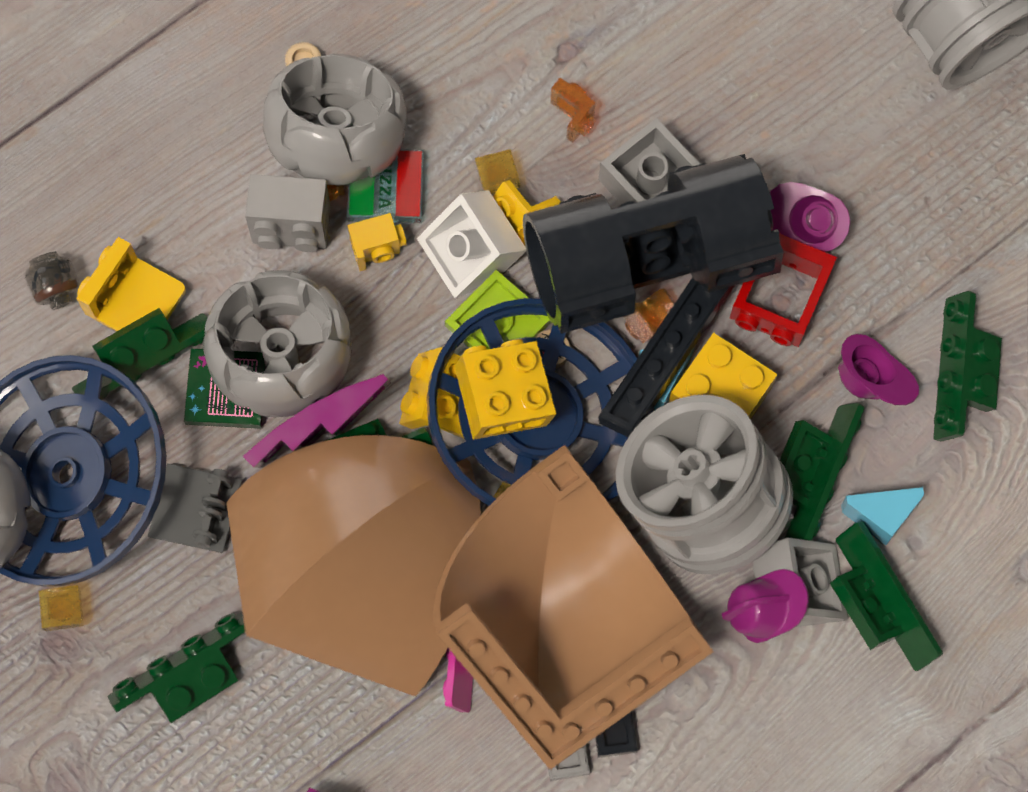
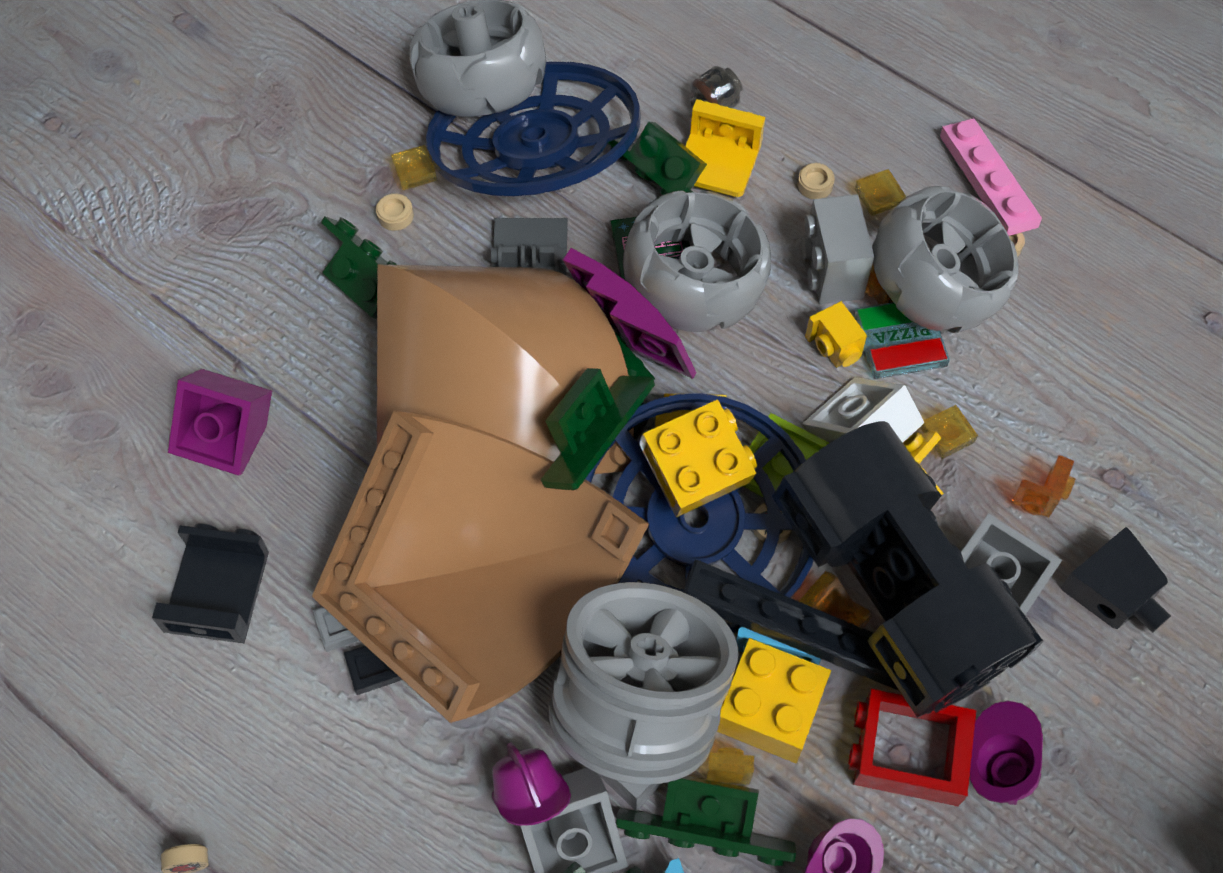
camera: 80 degrees right, 10 degrees down
(109, 638) = (394, 212): none -> tan tile
(184, 213) = (815, 181): none -> tan tile
(219, 156) = (879, 192): none -> clear yellow plate
(228, 50) = (990, 176): none -> bright pink plate
(455, 472) = (589, 422): none -> dark green bracket
(673, 79) = (1120, 583): none -> black torso
(773, 433) = (730, 766): none -> clear yellow plate

